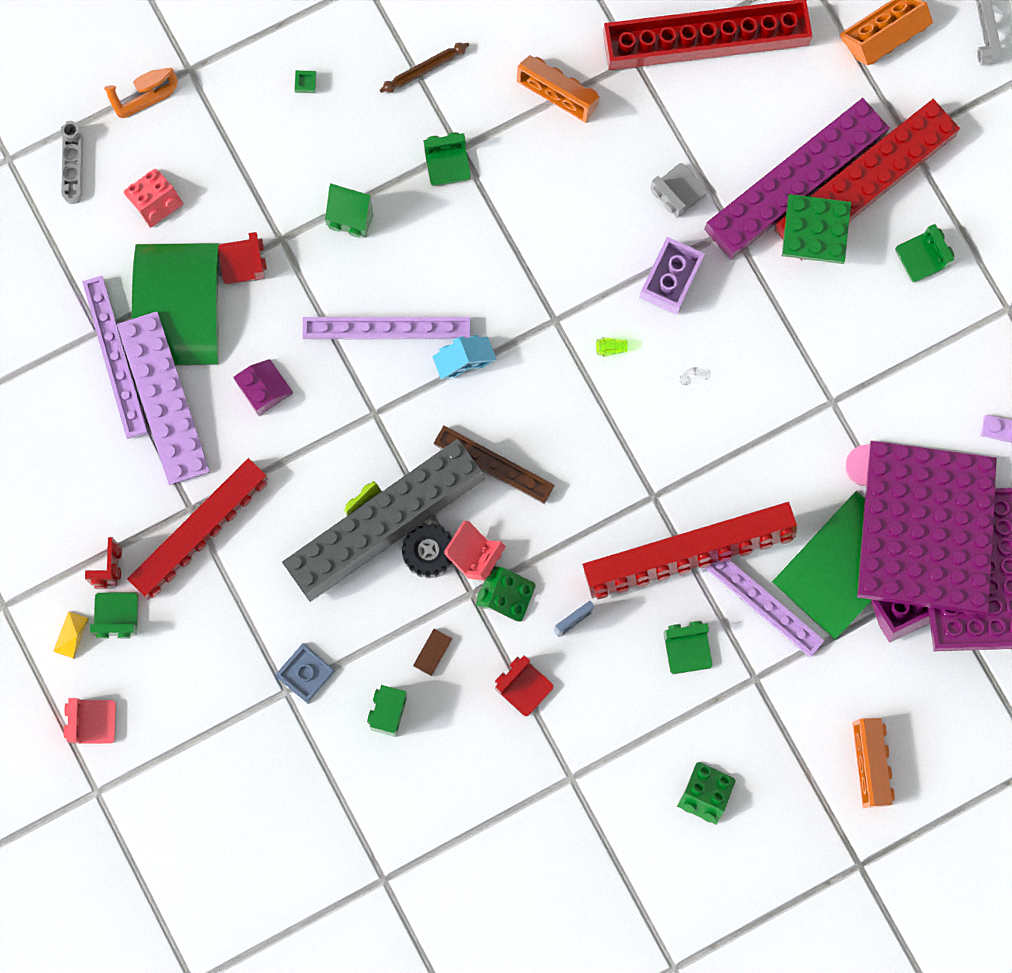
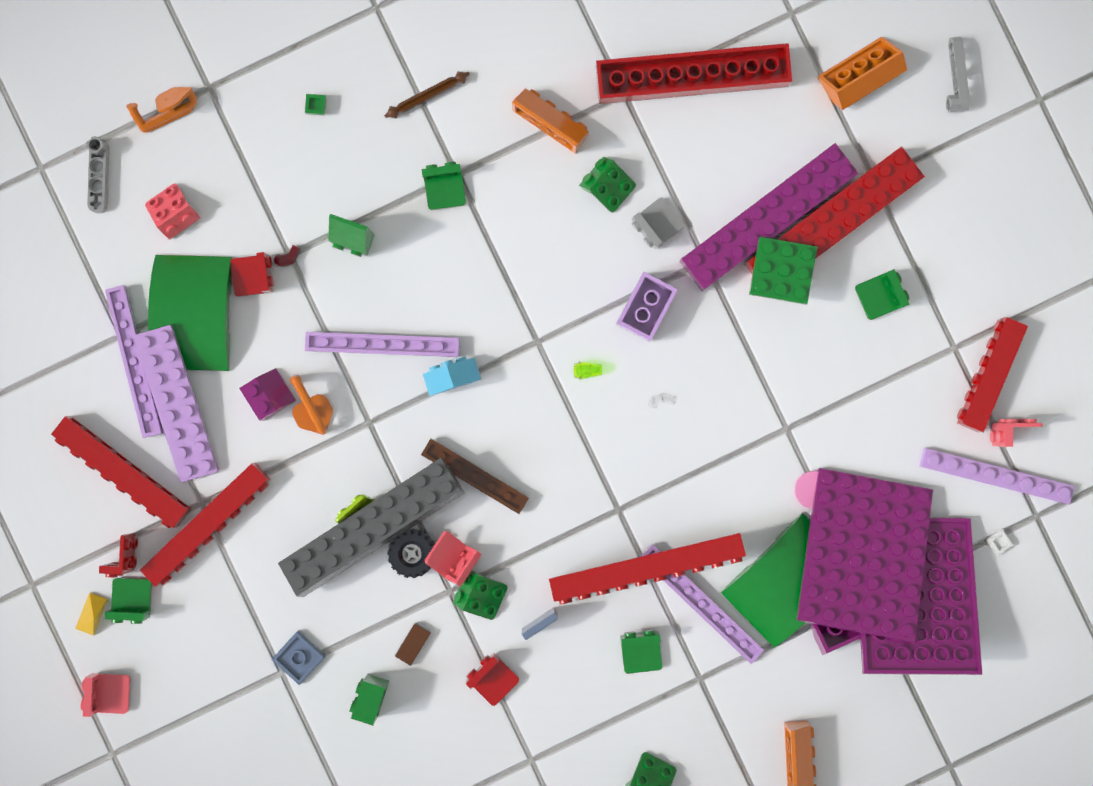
camera: 10 degrees right, 10 degrees up
(103, 475) = (121, 472): none -> red brick
(281, 242) = (287, 259): none -> dark red arm
(314, 402) = (313, 412): none -> orange piece
(623, 151) = (608, 184): none -> green bracket

